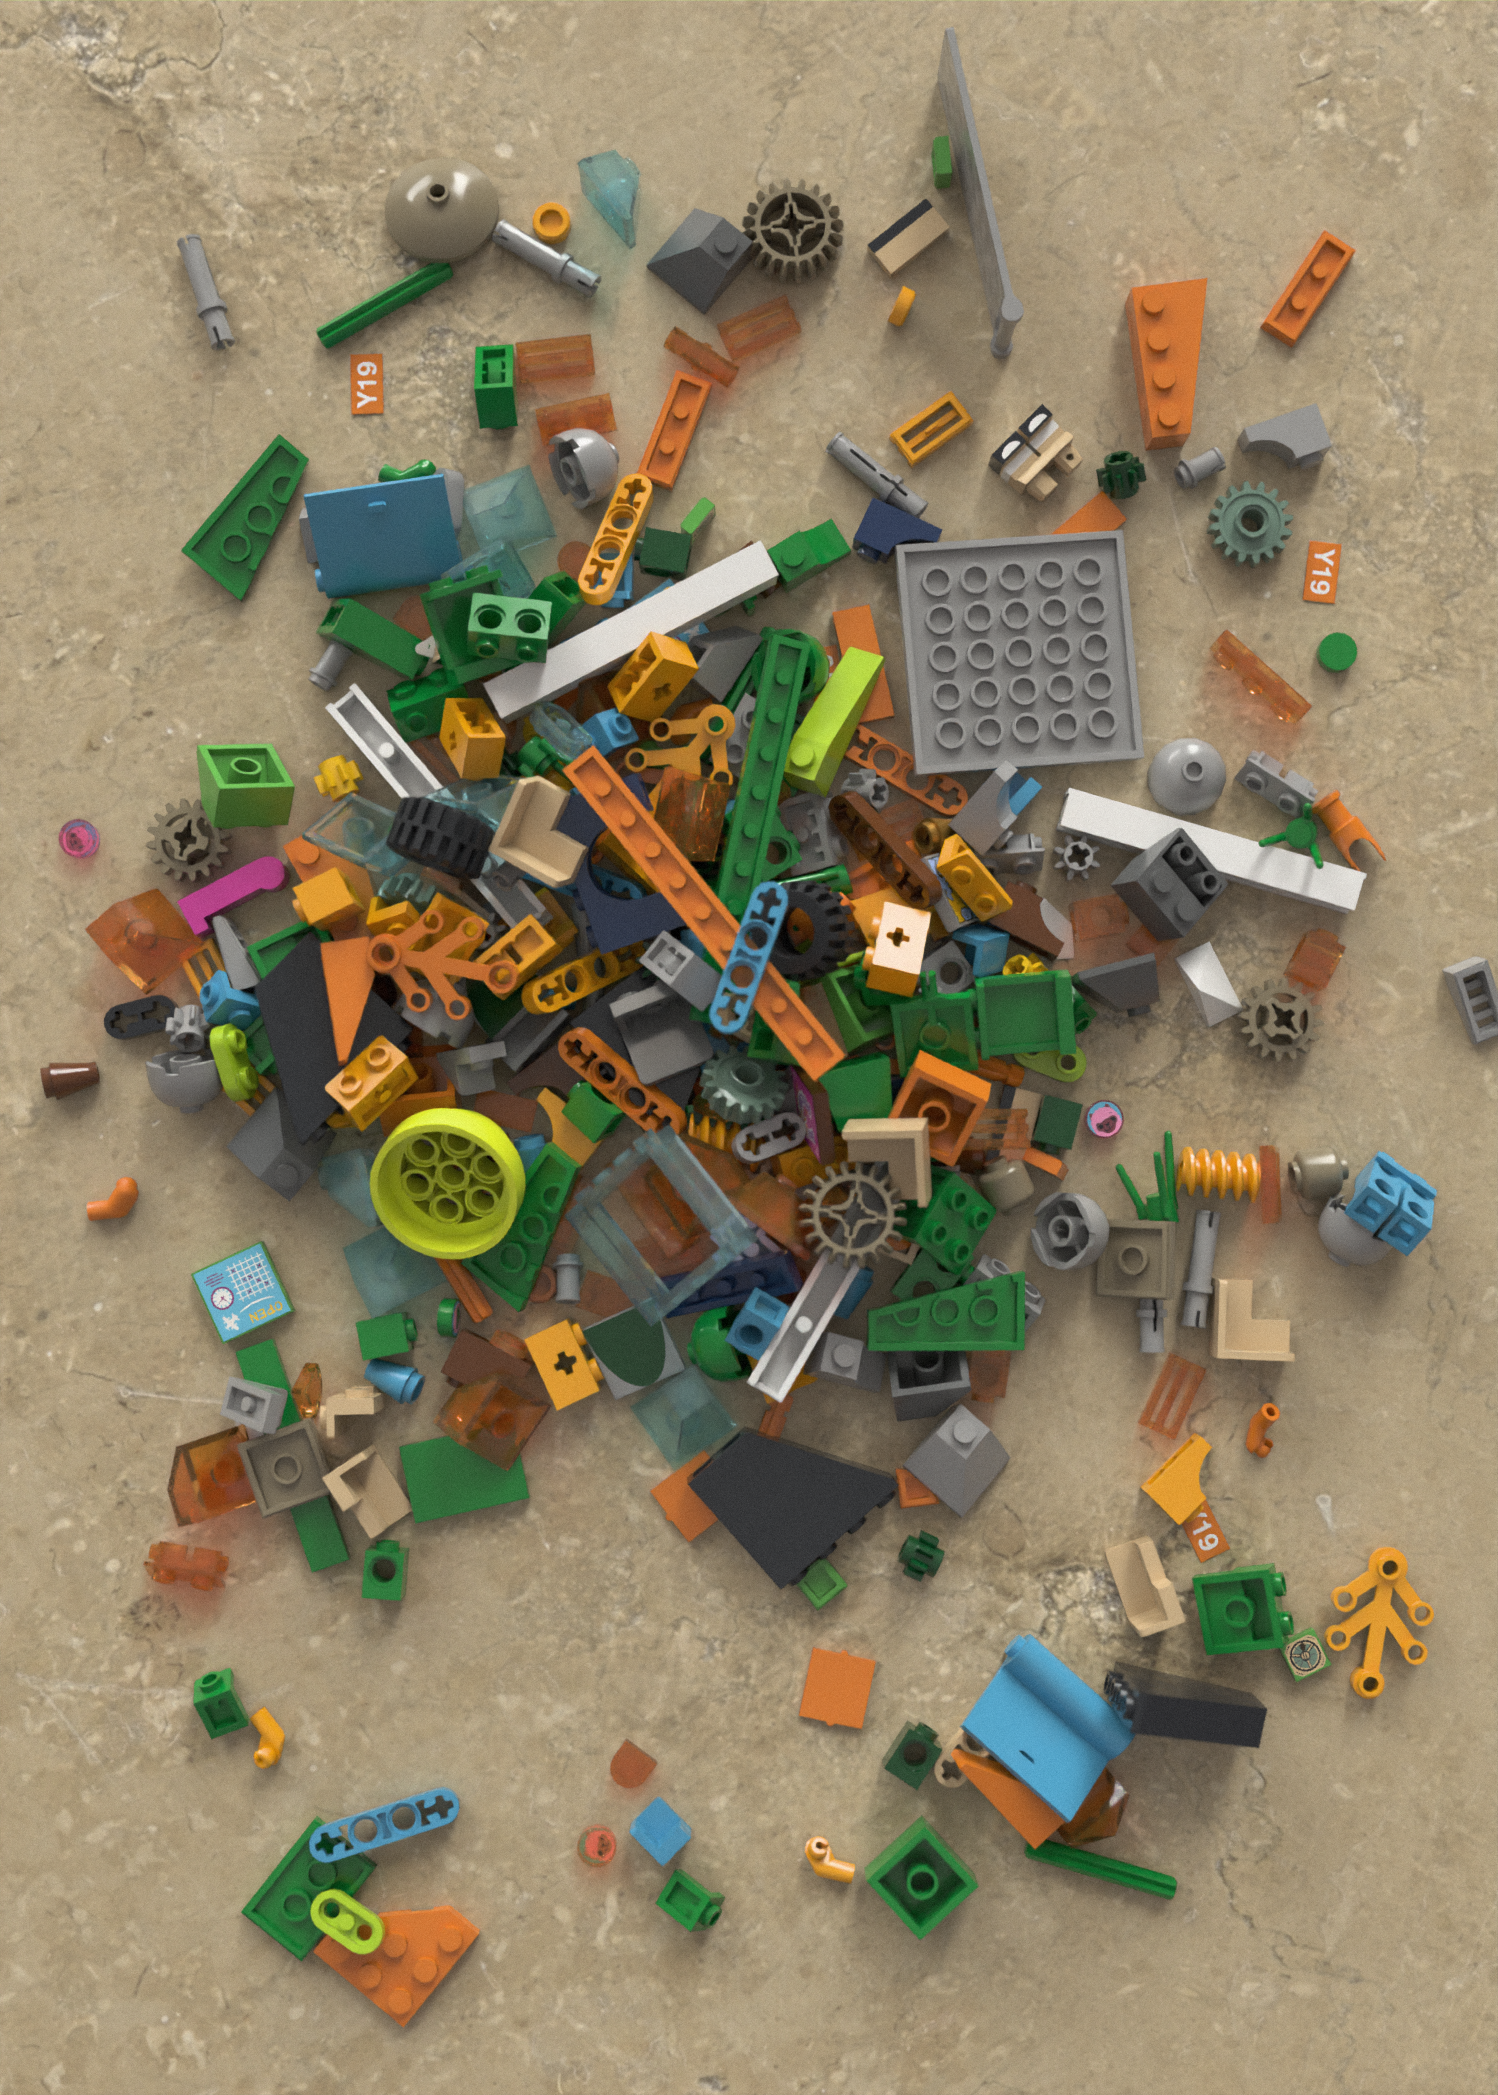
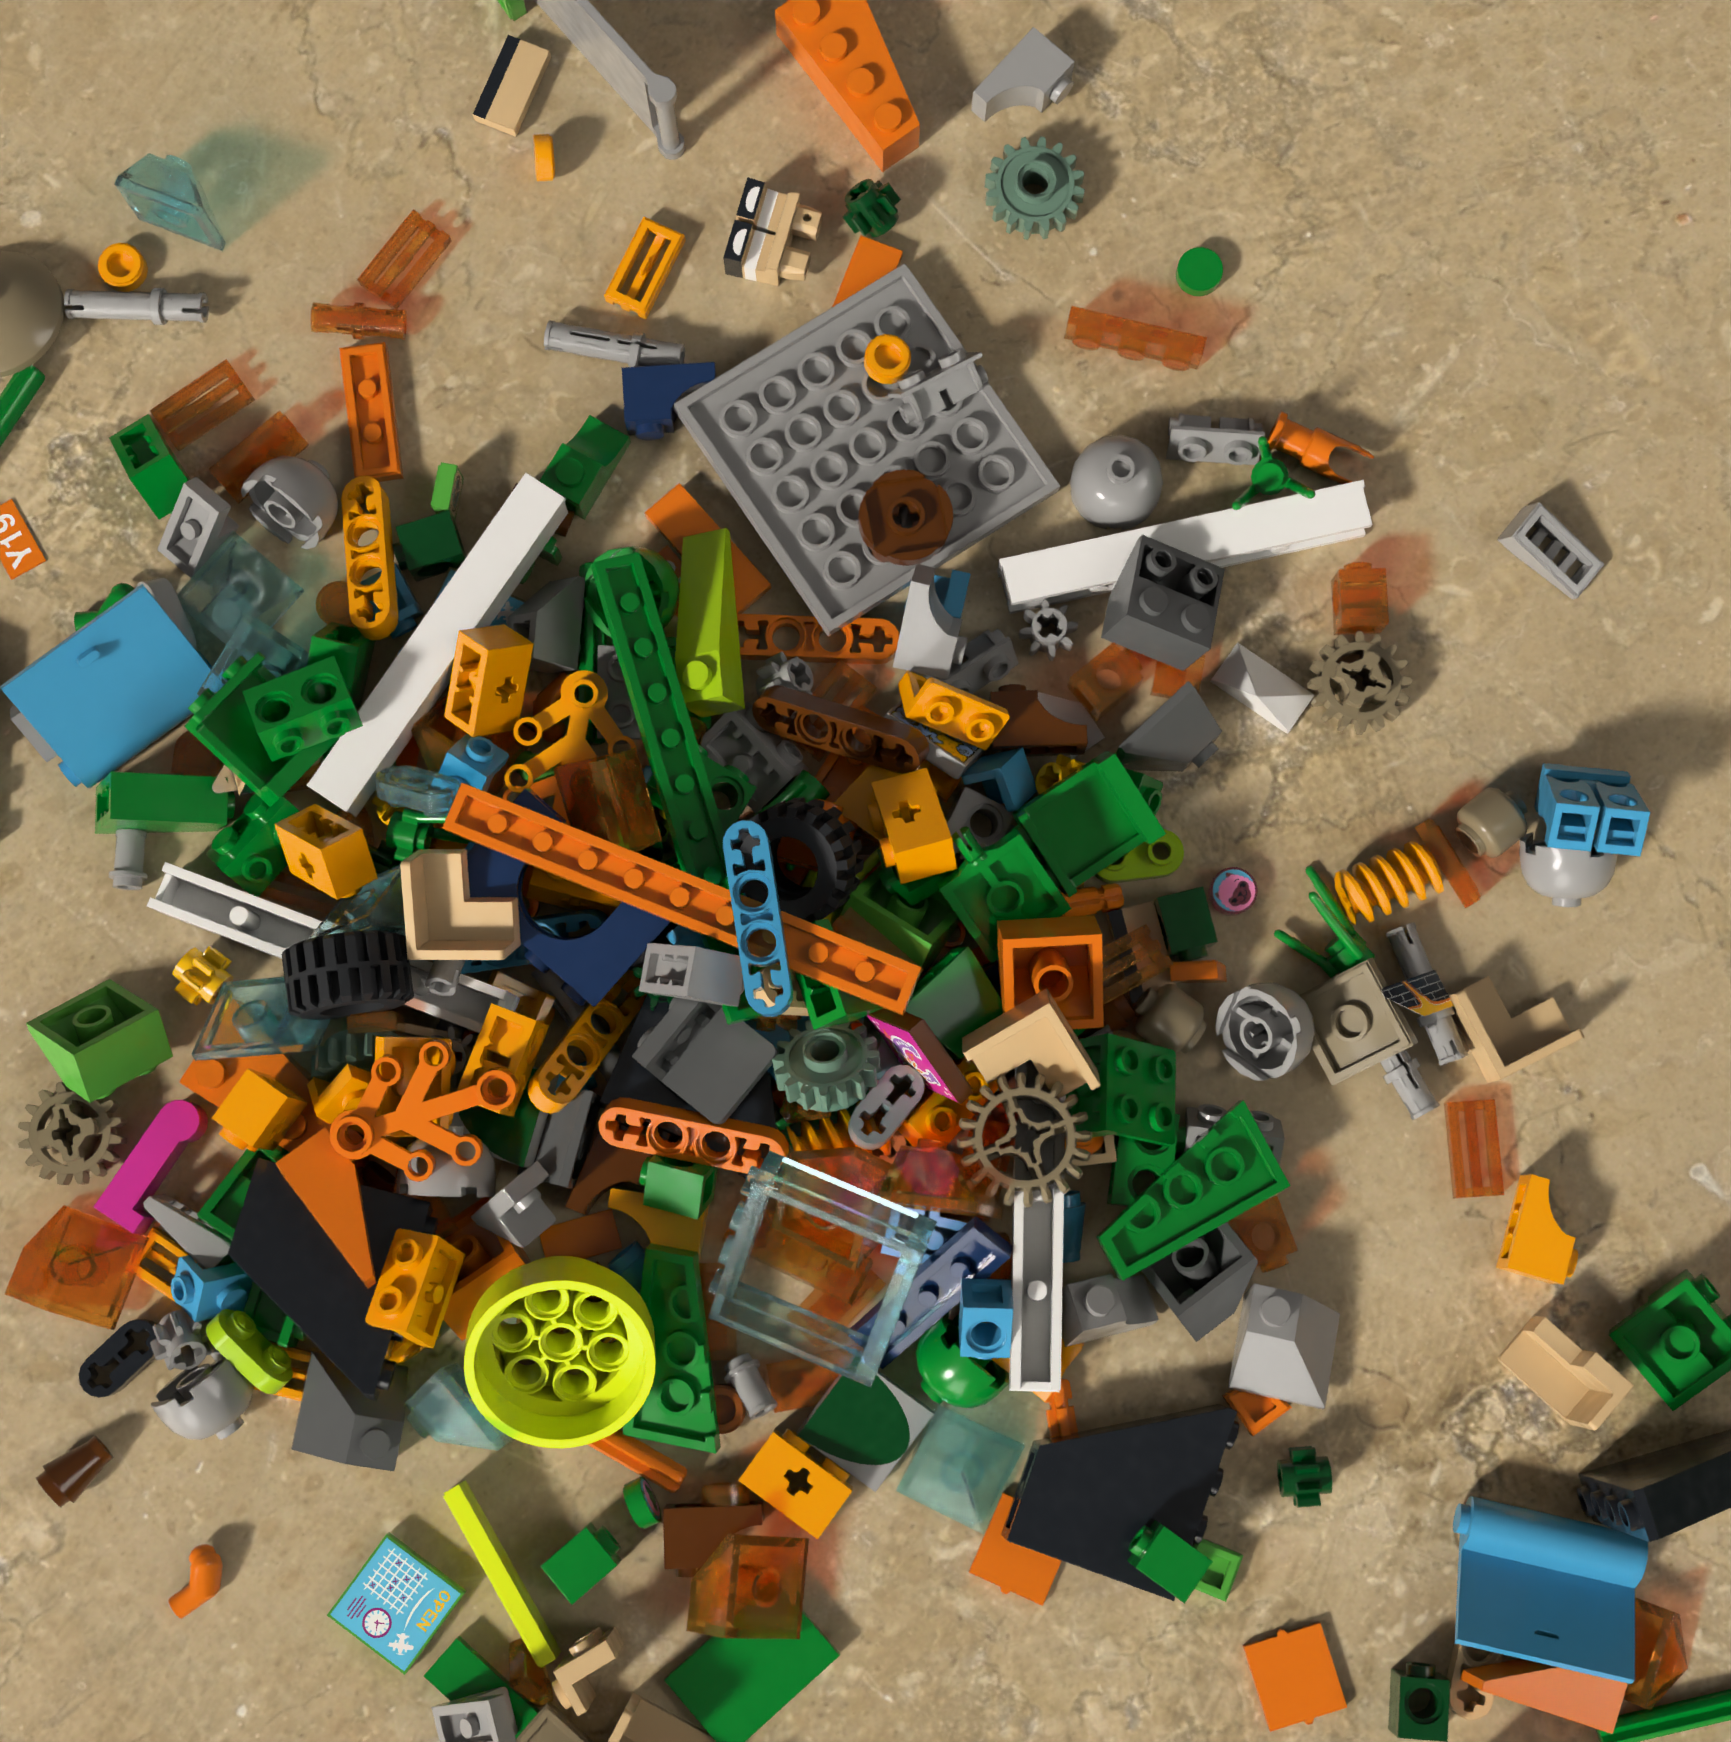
camera: 30 degrees left, 5 degrees down
(326, 1312) = (502, 1574): none -> neon yellow tile
(389, 1271) = (548, 1488): clear light blue slope -> none
(396, 1380) = (620, 1606): dark azure cone -> none
(503, 448) = (196, 527): none -> light grey slope
(702, 258) = (304, 218): dark grey slope -> none
(792, 1559) = (1168, 1560): none -> green brick
(806, 227) = (411, 117): dark tan gear -> none
(930, 835) = (880, 687): pearl gold cone -> none
(1036, 710) = (921, 497): none -> reddish brown plate
(1069, 595) = (887, 358): none -> light orange tile
(1112, 635) = (954, 375): none -> light grey hinge
(1192, 471) = (943, 167): light grey pin -> none
(1195, 1267) = (1420, 994): none -> sticker
(1205, 1534) = (1596, 1280): orange sticker -> none
(1258, 1426) = (1584, 1129): orange arm -> none
(1322, 572) = (1136, 198): orange sticker -> none

